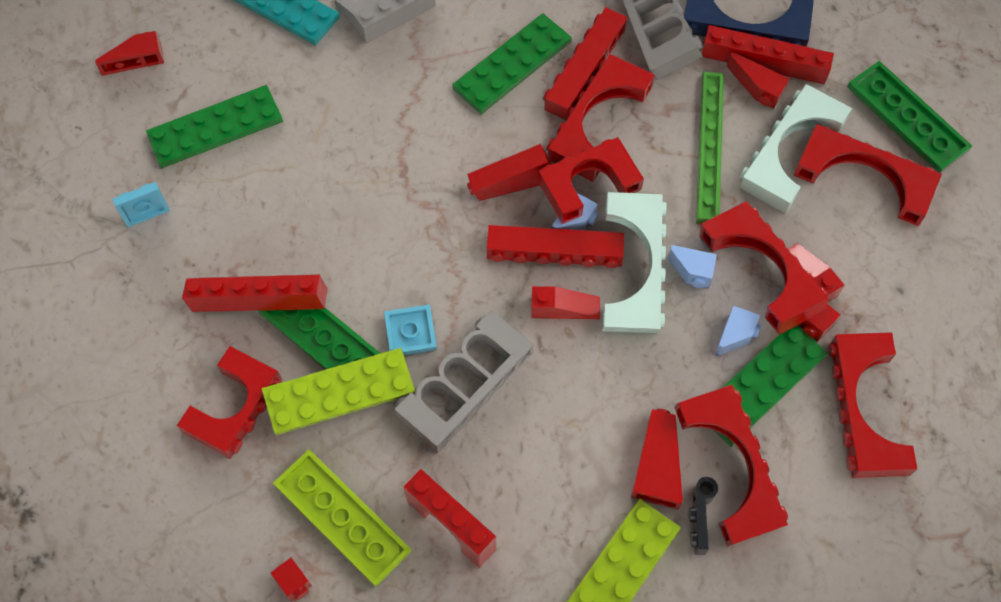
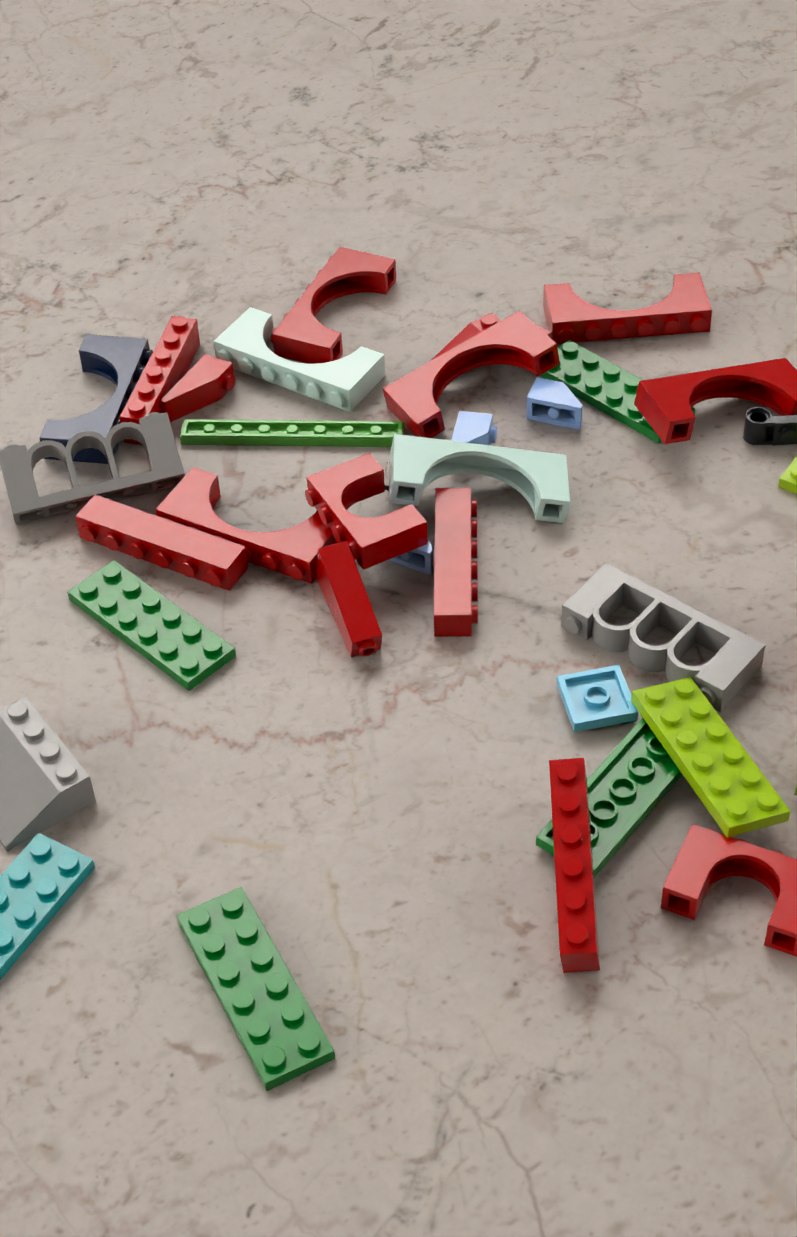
camera: 90 degrees left, 20 degrees down
(134, 53) = (95, 1121): red slope -> none
(141, 204) = (427, 1045): medium azure plate -> none
(562, 303) = (537, 555): red slope -> none
(659, 463) = (729, 461): red slope -> none
(909, 116) = (252, 277): green plate -> none

